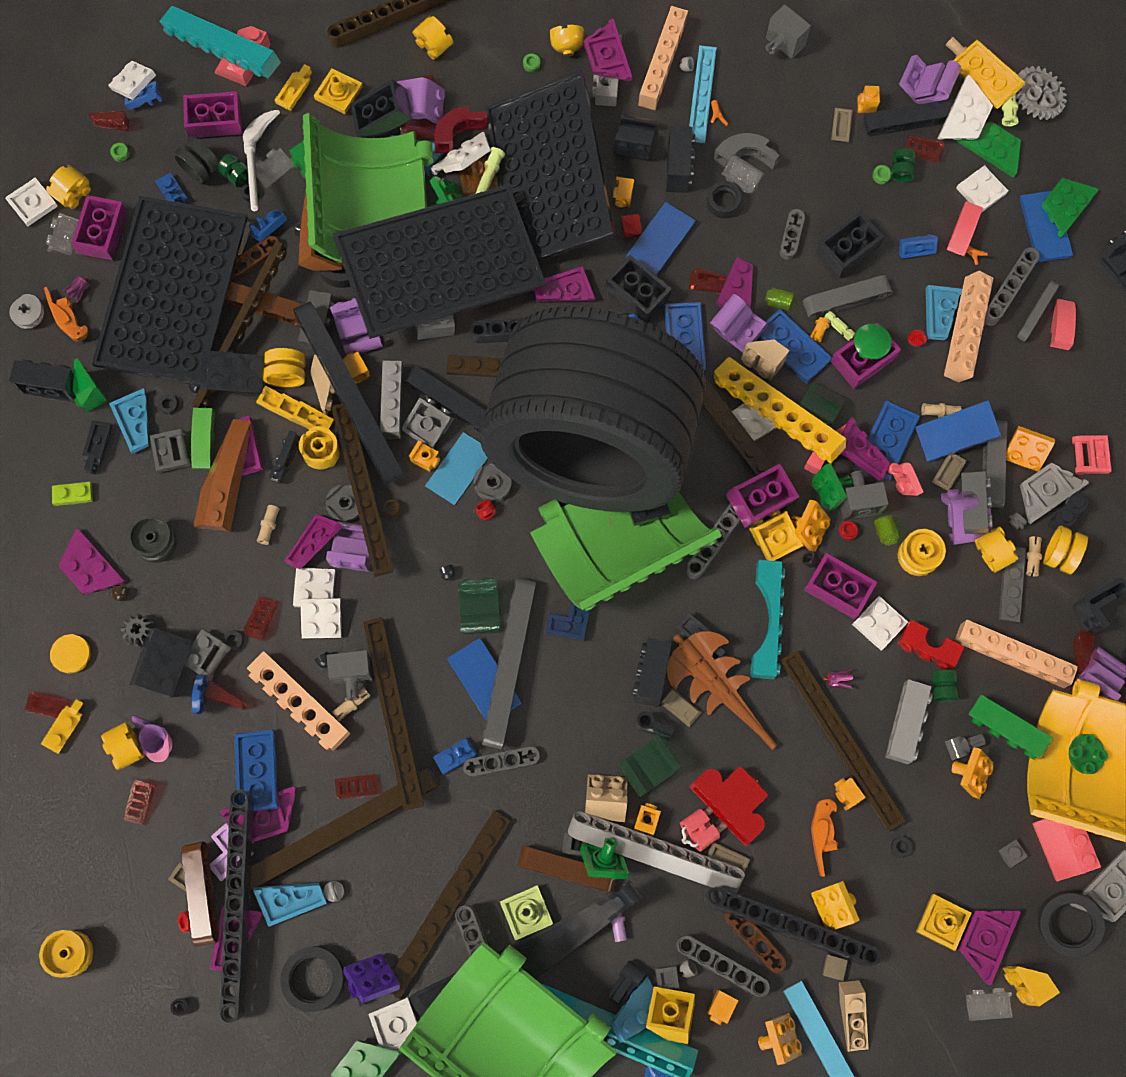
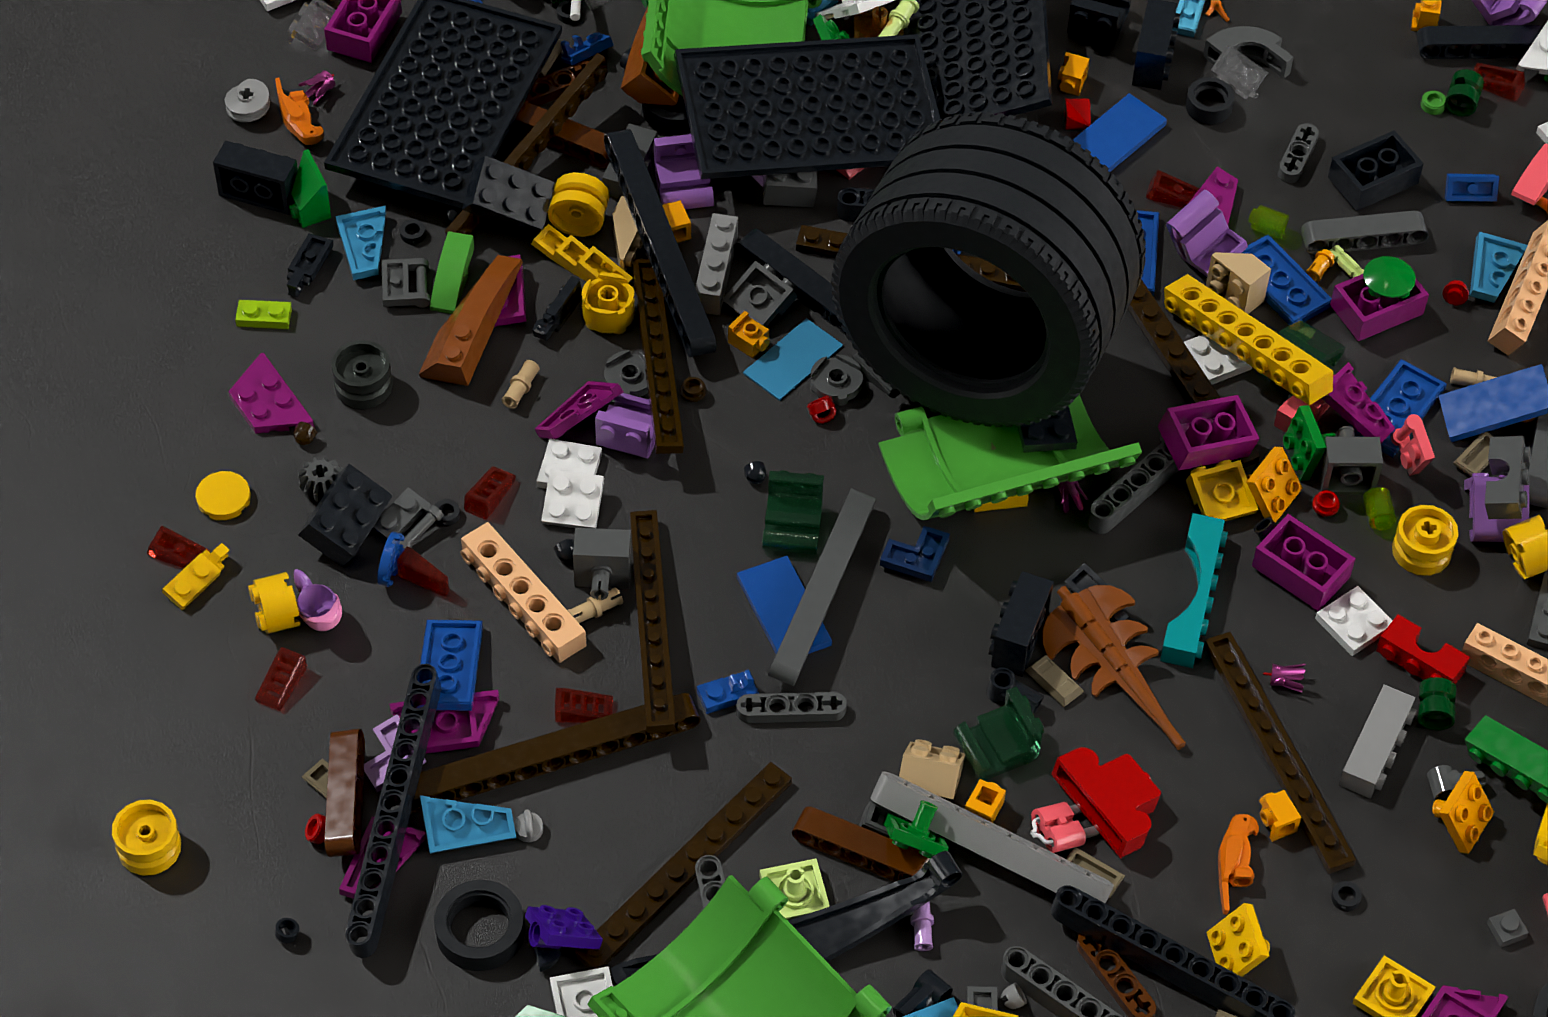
camera: 10 degrees right, 20 degrees down
(841, 125) = (1385, 39): dark tan tile -> none

